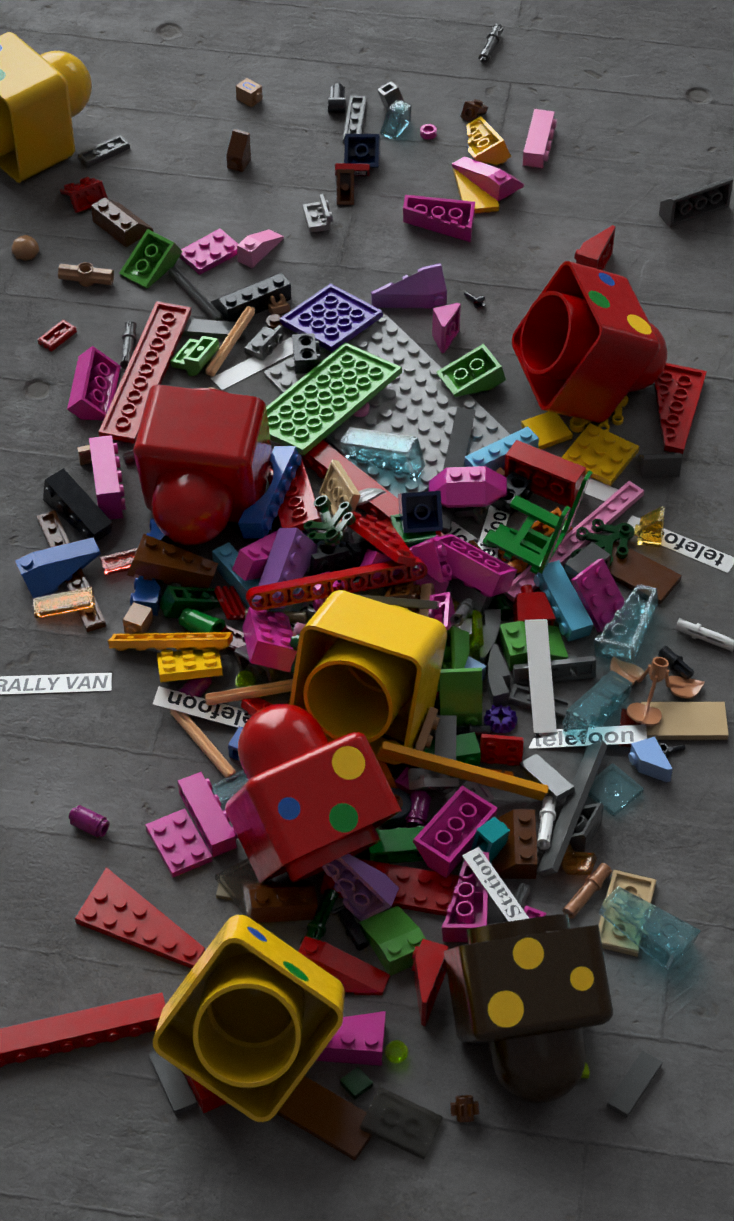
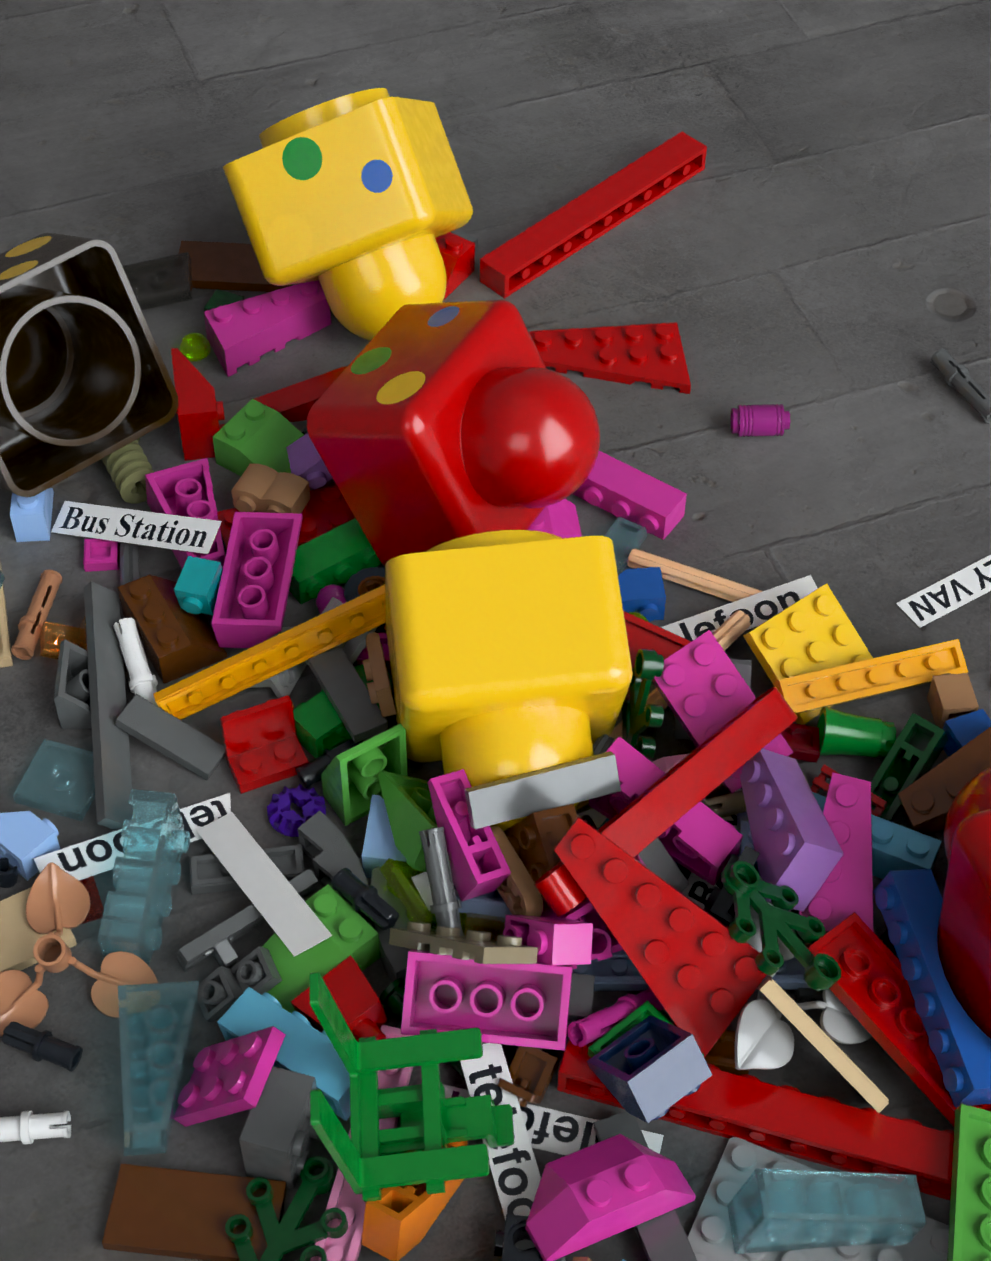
camera: 150 degrees right, 0 degrees up
(178, 842) = (640, 447): dark pink plate -> none
(417, 889) = (269, 491): none -> medium nougat brick
(470, 564) = (473, 946): none -> dark tan wing
(498, 638) = (365, 899): none -> black axle
(568, 647) = (226, 985): none -> dark grey slope

